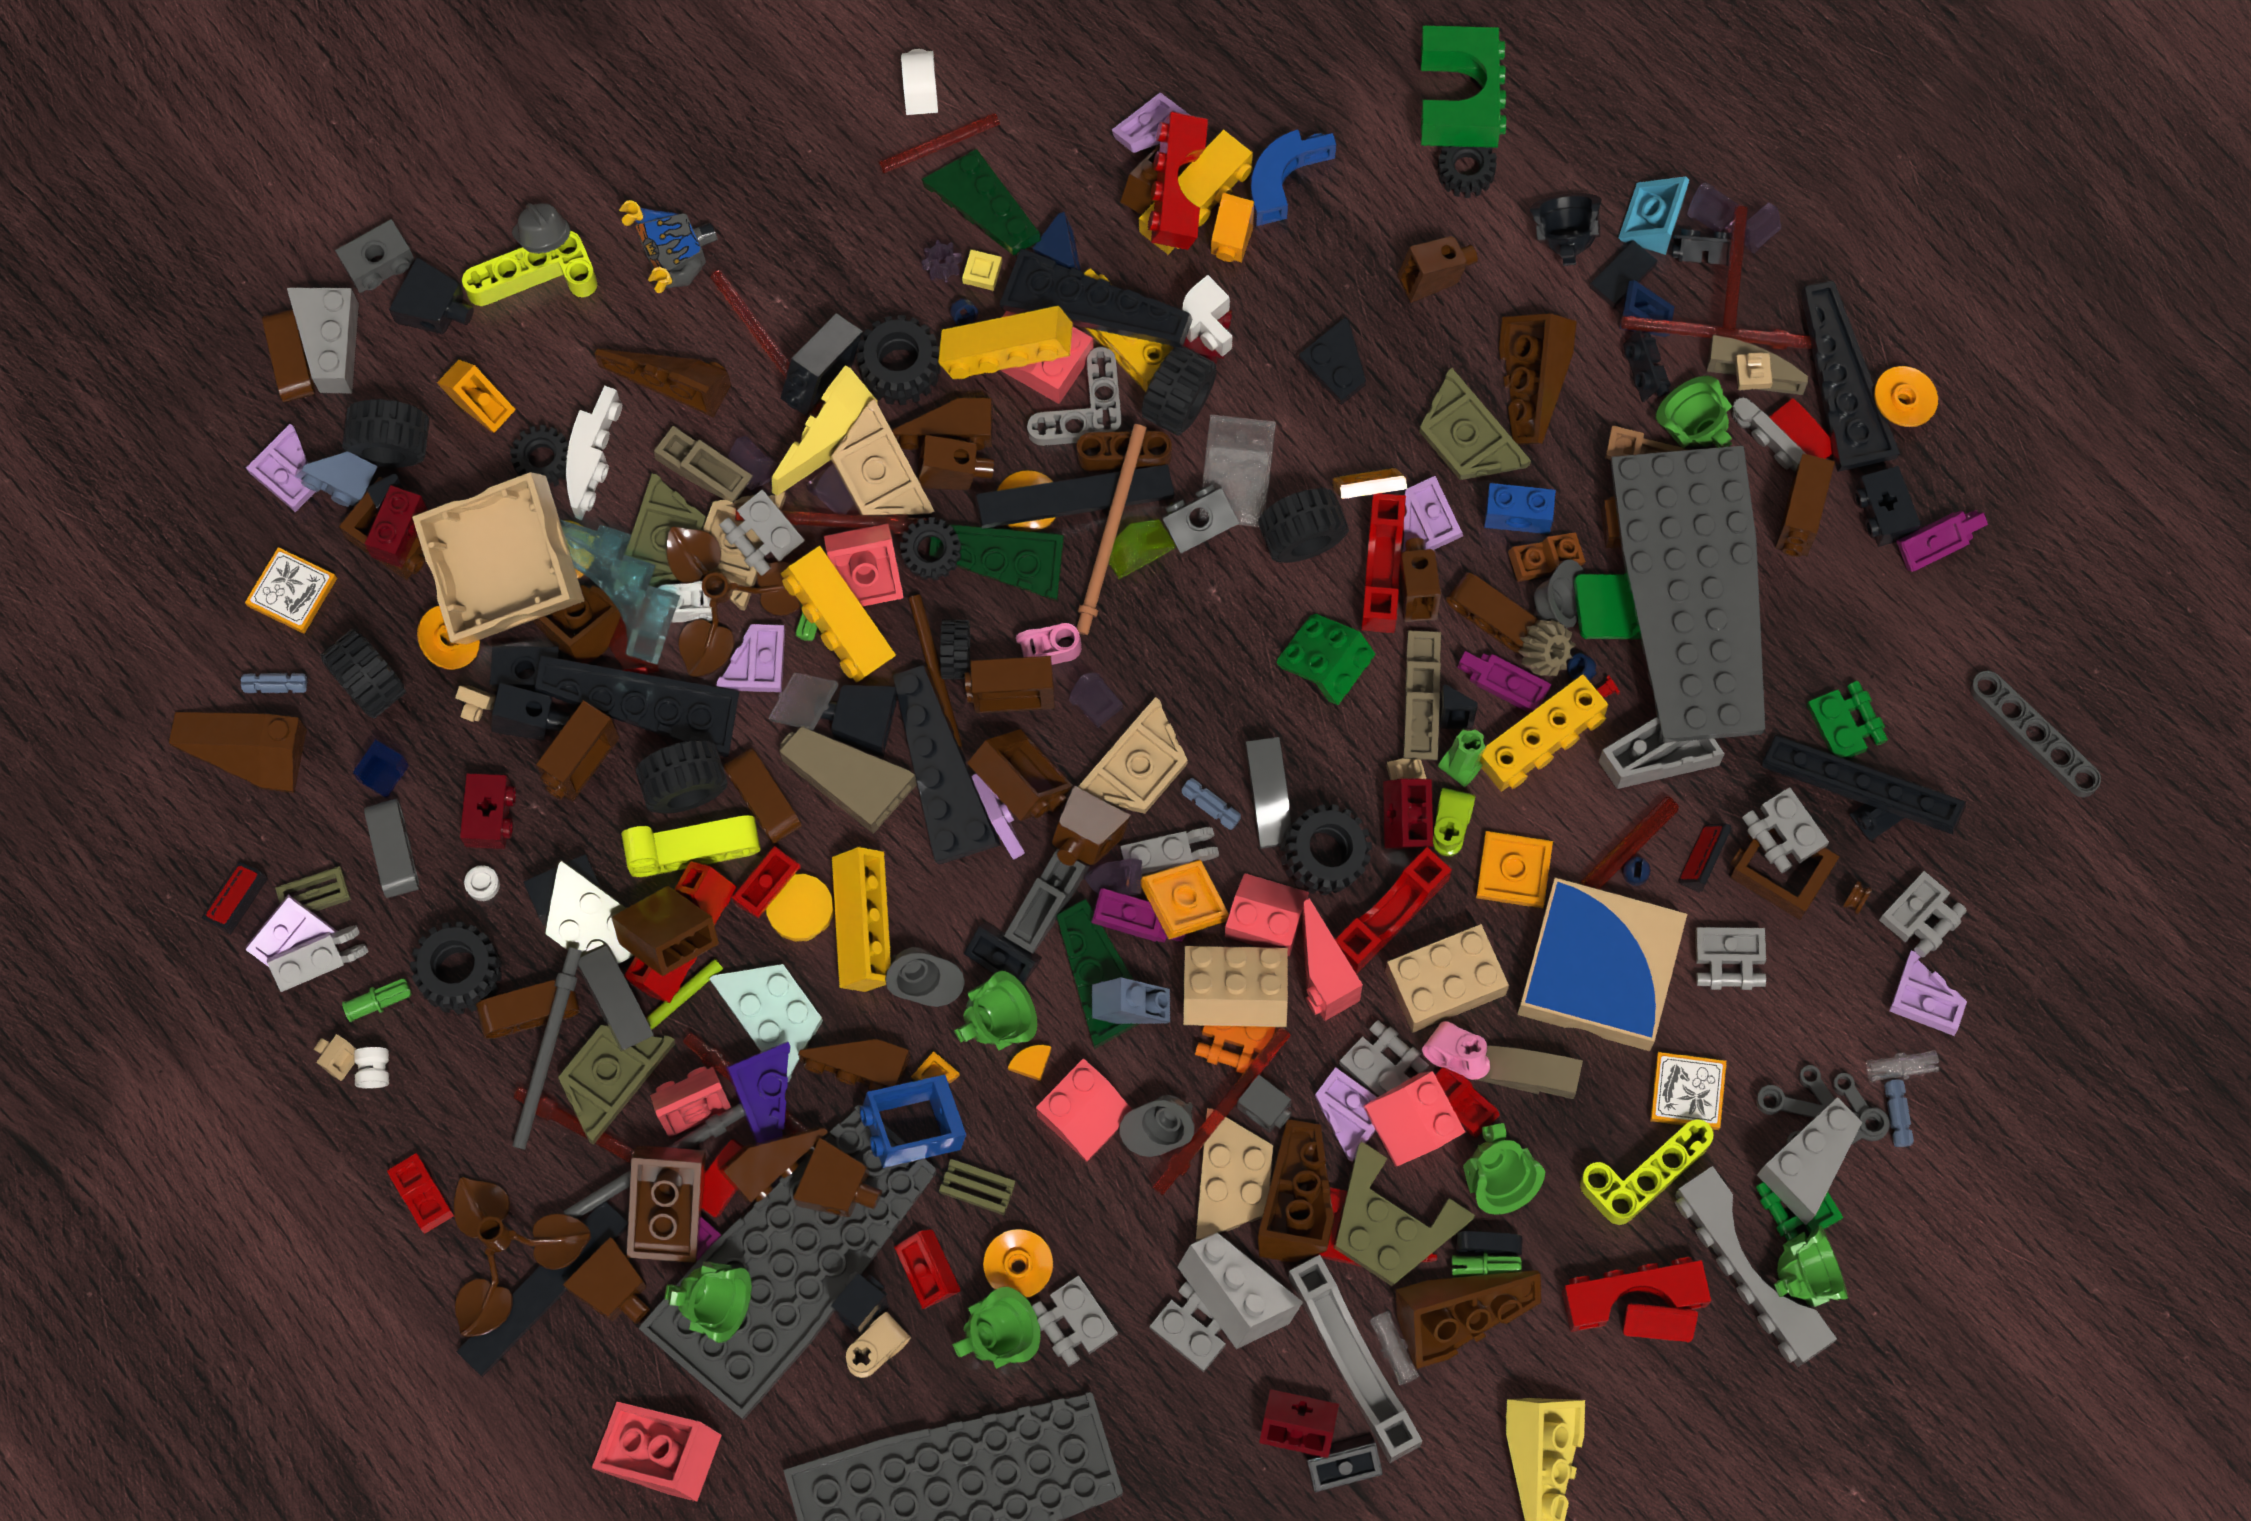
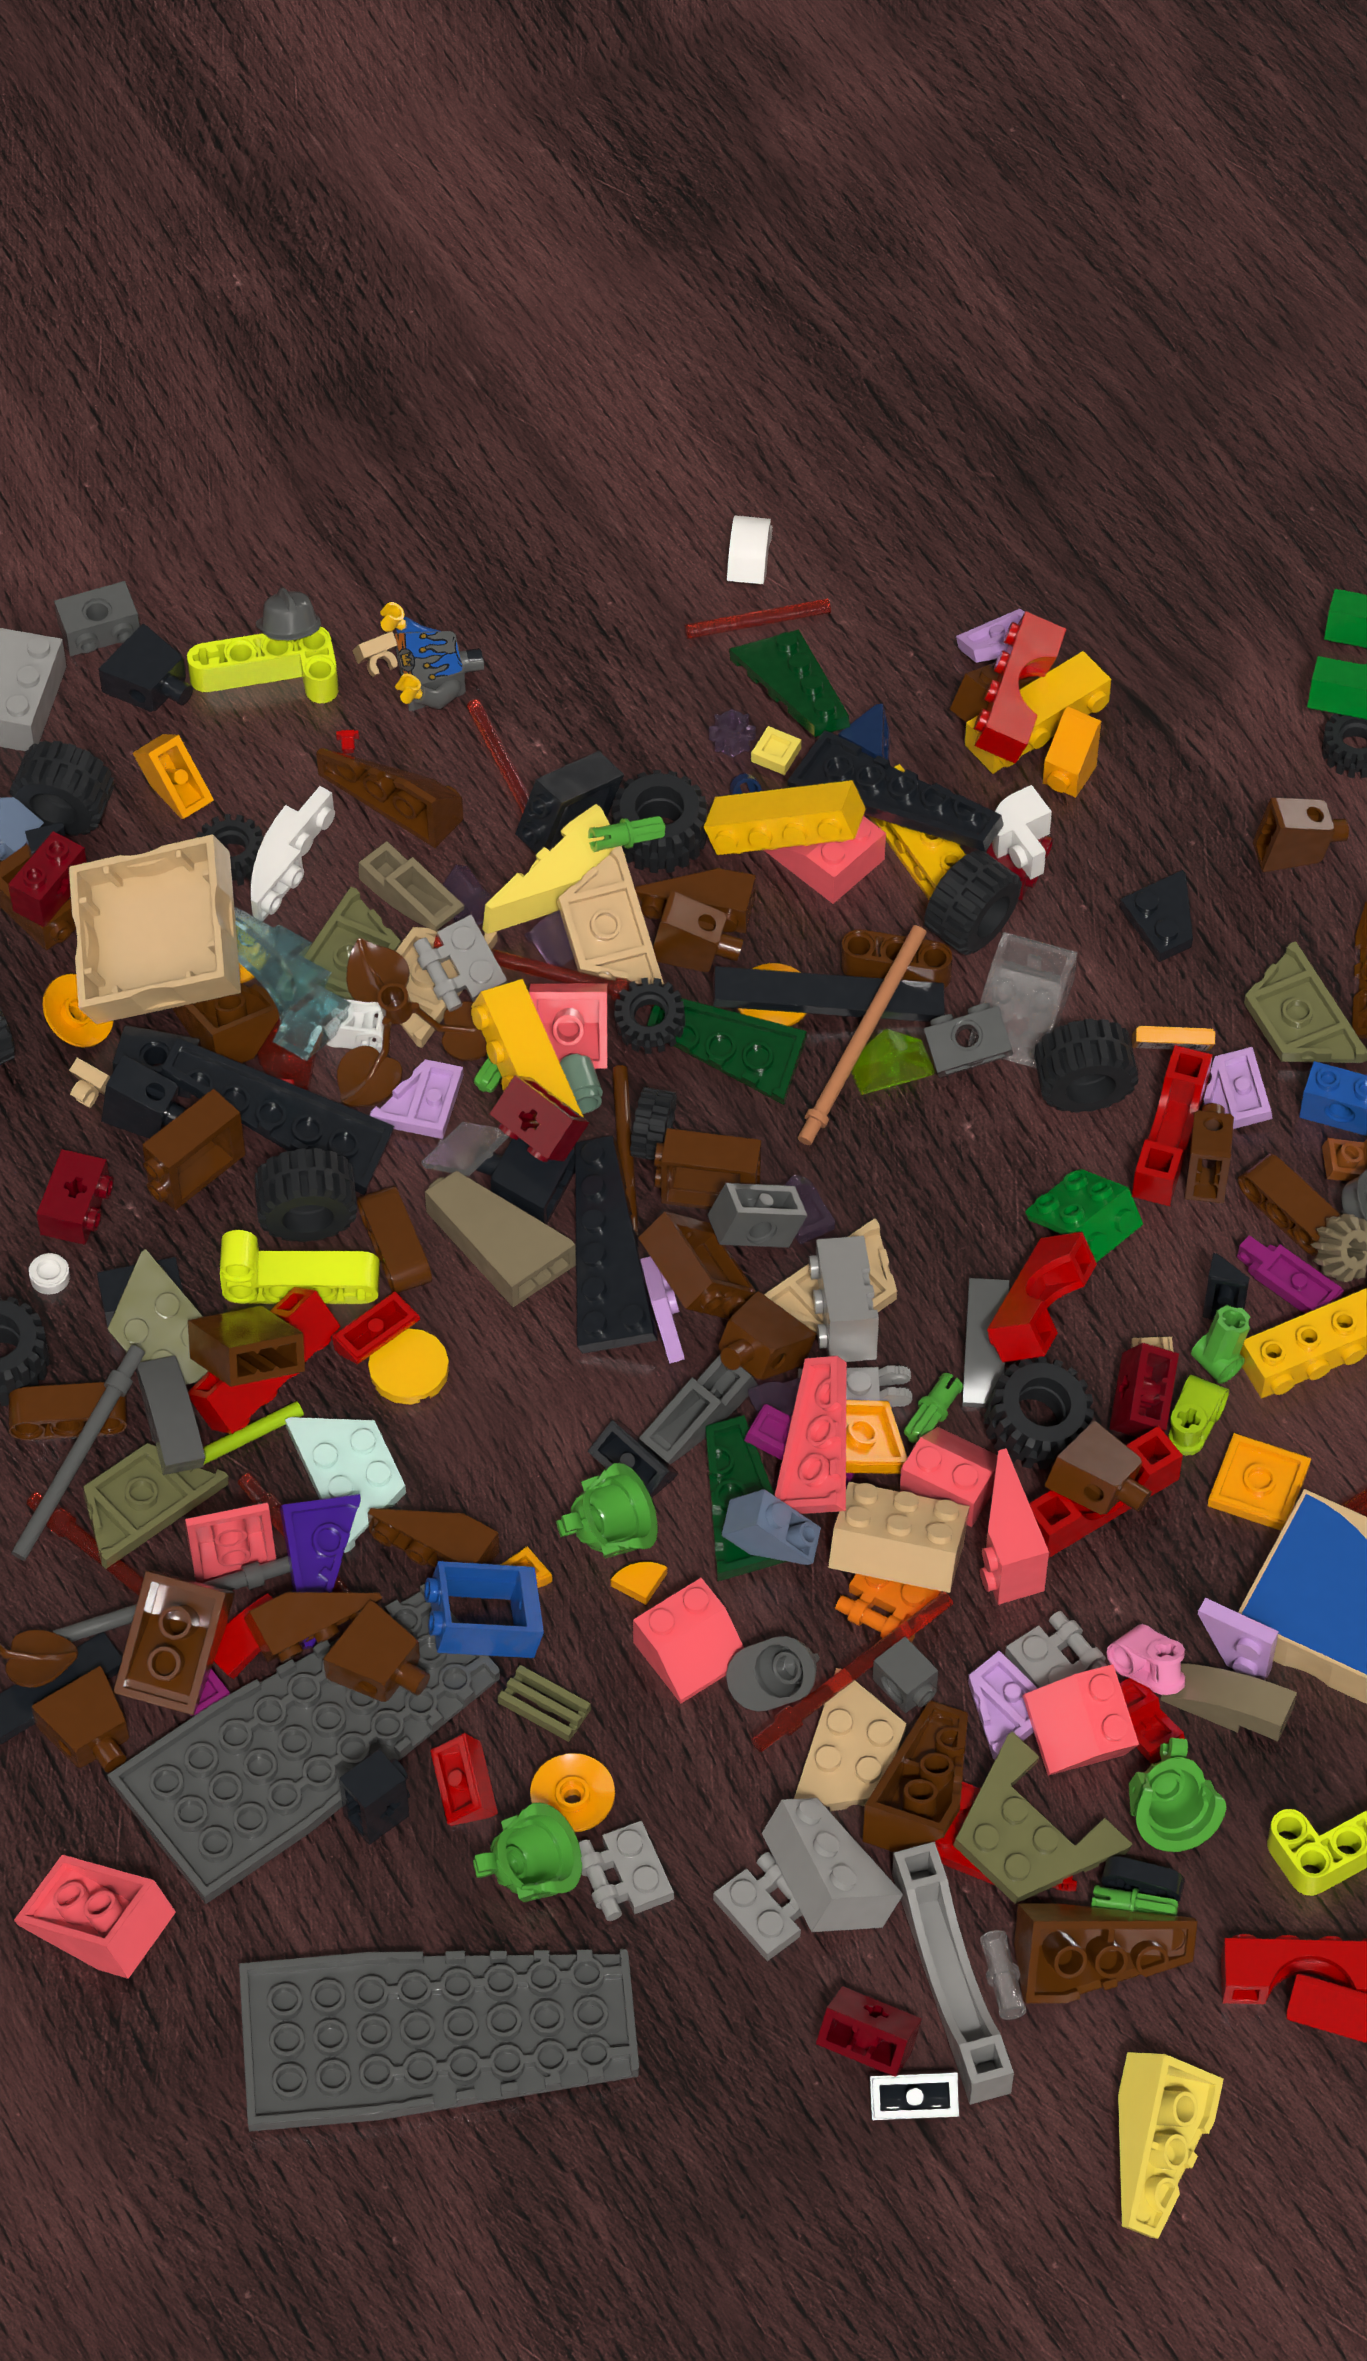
camera: 10 degrees right, 15 degrees down
(616, 330) = (347, 740): none -> red piece
(620, 240) = (377, 649): none -> tan tile
(713, 1299) = (205, 1751): bright green helmet -> none
(861, 671) = (539, 1119): none -> dark red brick
(861, 919) = (477, 1387): yellow brick -> none
(876, 387) = (627, 833): none -> bright green axle
(881, 1341) = (382, 1850): tan piece -> none
(886, 618) = (583, 1081): none -> sand green brick
(924, 978) = (535, 1463): dark grey piece -> none
(1046, 642) = (771, 1134): bright pink piece -> none
(1059, 717) = (757, 1215): none -> dark grey brick
(1090, 417) = (861, 918): light grey beam -> none
(1147, 781) = (844, 1298): none -> light grey wedge
(1153, 927) = (815, 1450): none -> coral wing
(1211, 803) = (914, 1345): sand blue axle -> none
(1237, 860) = (933, 1408): none -> bright green axle
(1277, 163) = (1140, 700): blue arch -> none
(1313, 717) = (1054, 1269): none -> red arch
(1388, 900) = (1098, 1472): none -> reddish brown torso
(1422, 695) = (1188, 1275): dark tan slope -> none
(1446, 978) = (1151, 1578): tan brick -> none
(1532, 1025) = (1239, 1639): none -> lavender wing

